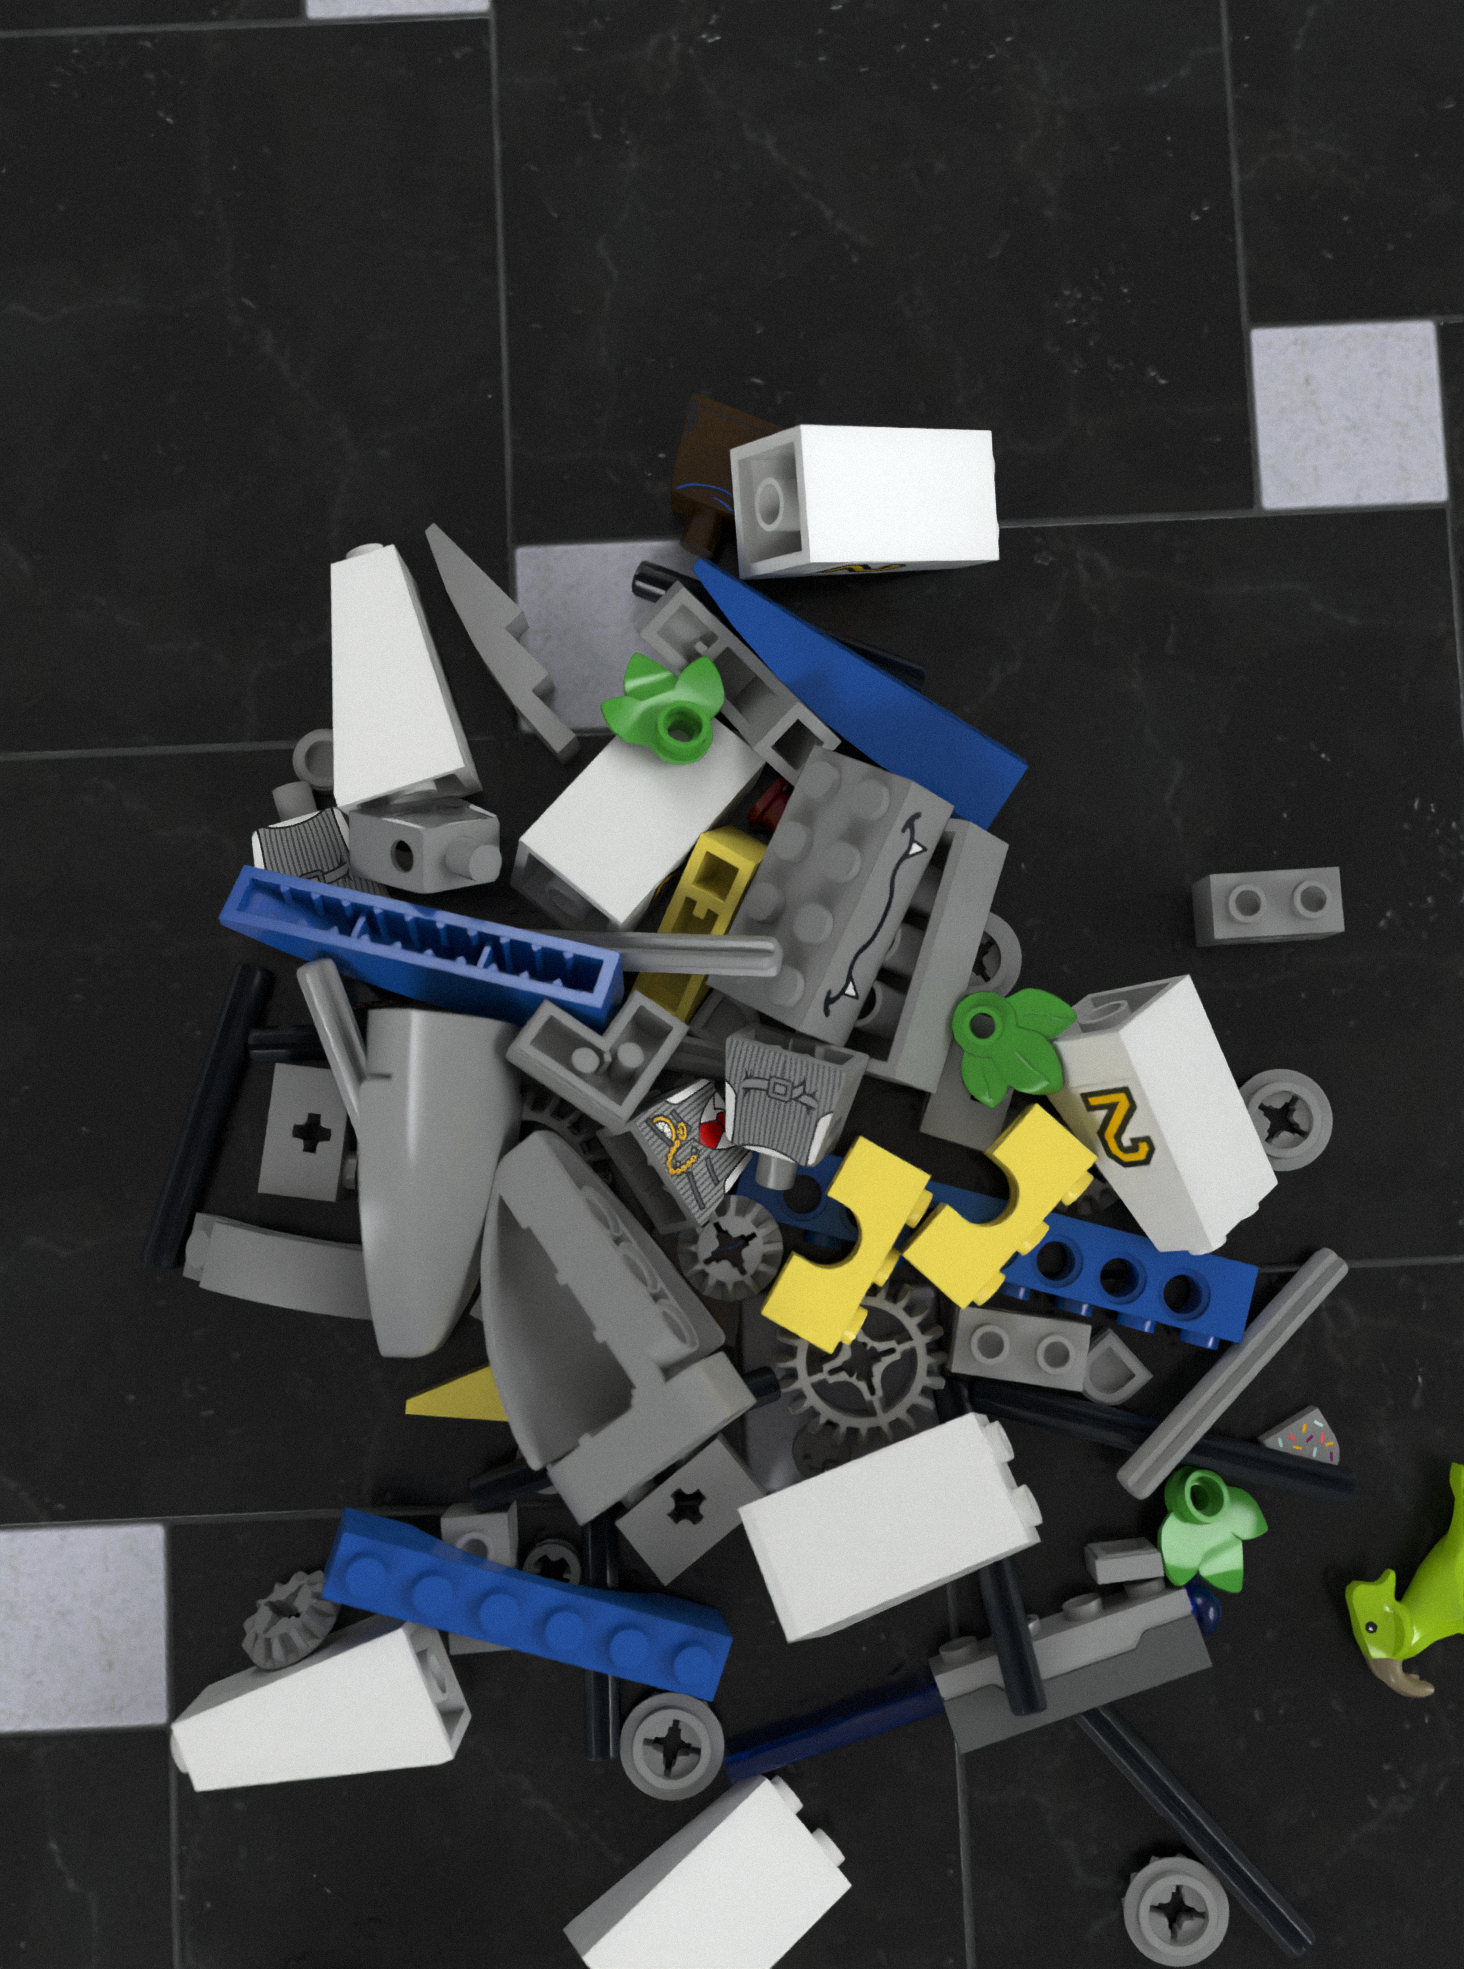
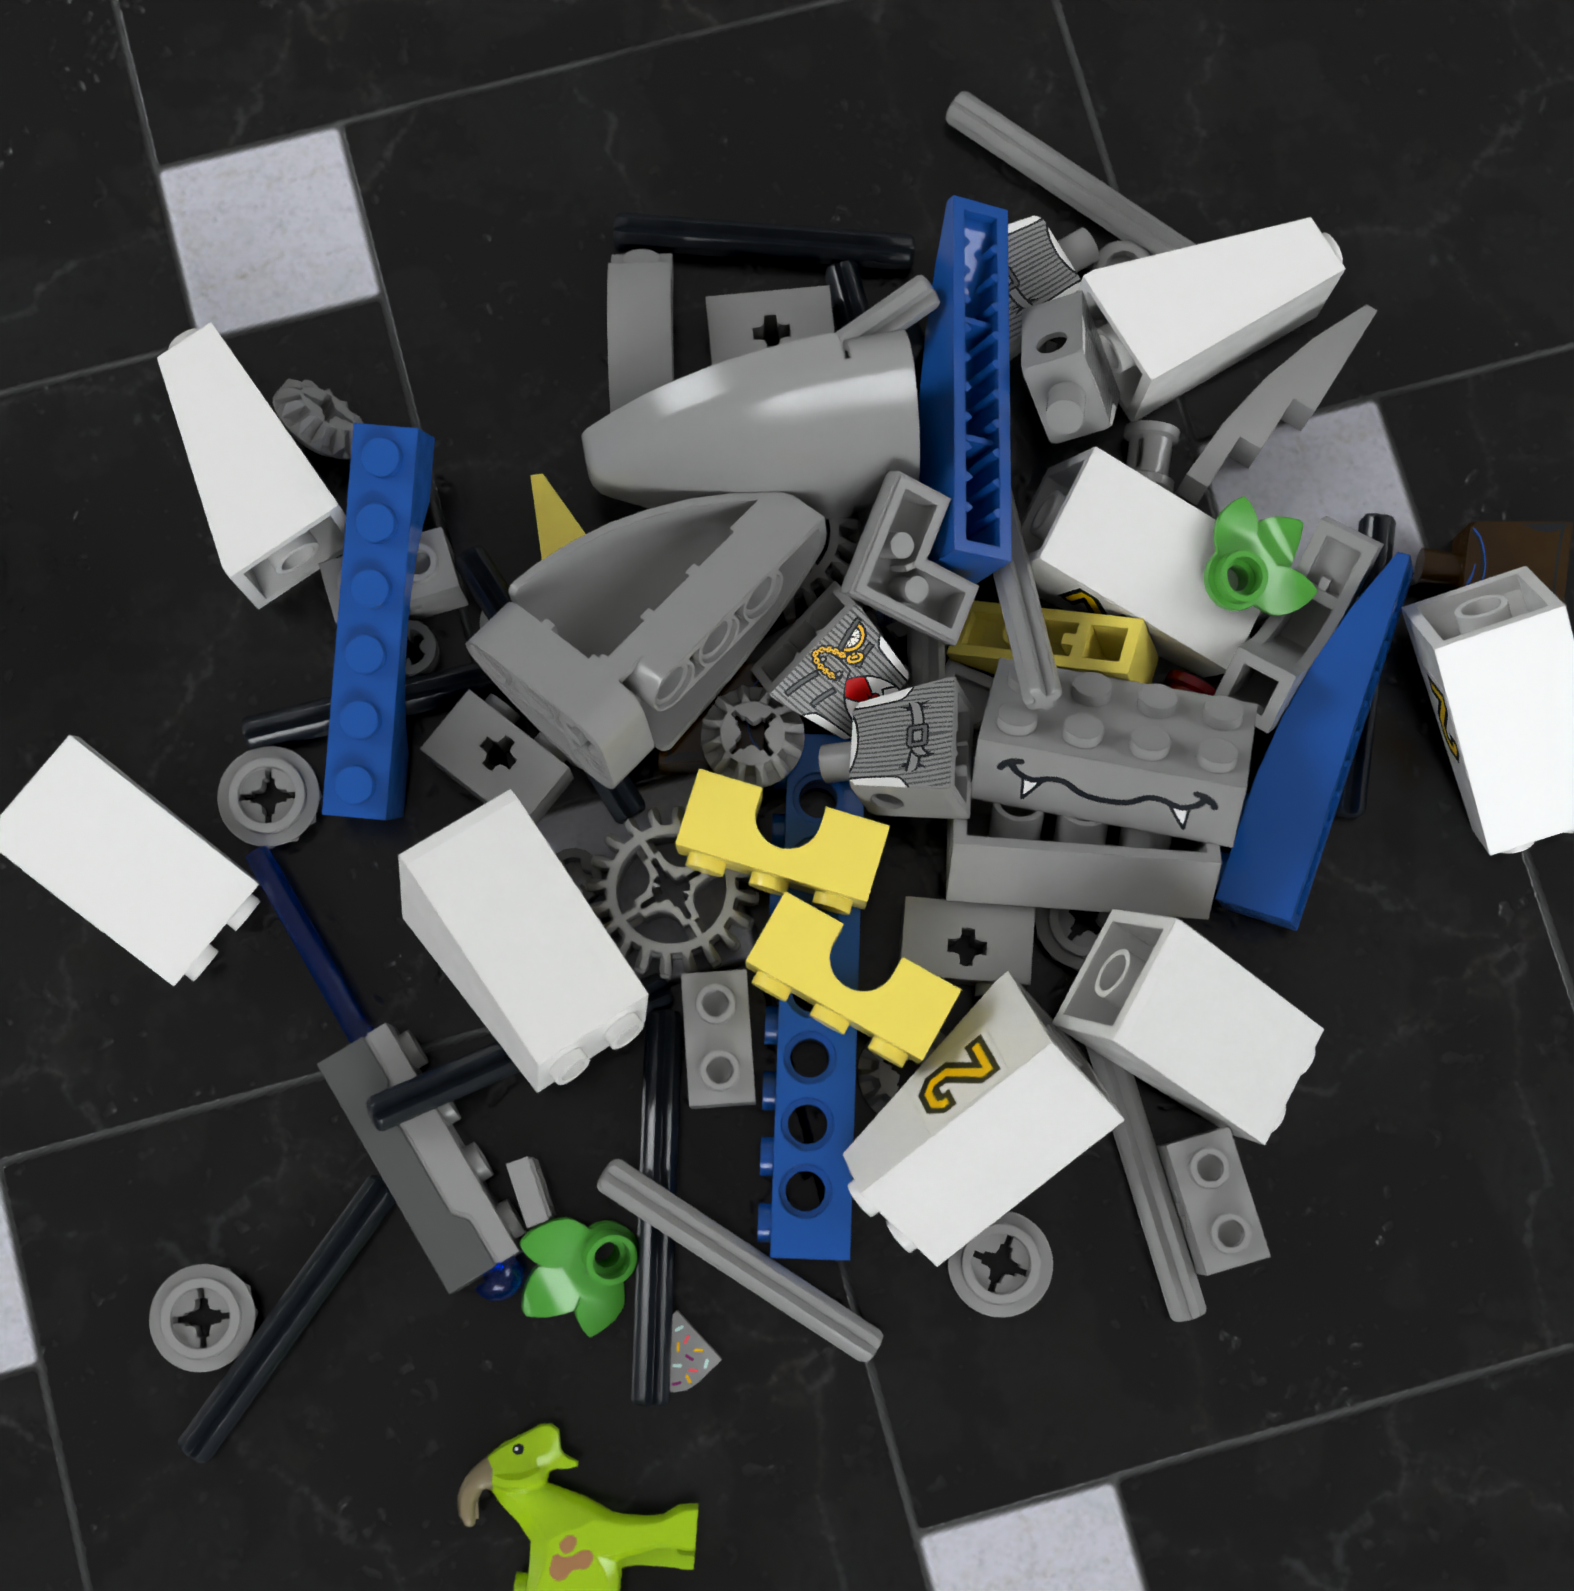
camera: 75 degrees right, 5 degrees down
(217, 790) = (1061, 176): none -> light grey axle
(526, 782) = (1152, 449): none -> light grey bush
(1019, 1047) = (1011, 965): bright green plate -> none
(1107, 891) = (1189, 1022): none -> white slope
(1112, 1370) = (712, 1143): light grey tile -> none
(1212, 962) = (1151, 1193): none -> light grey axle

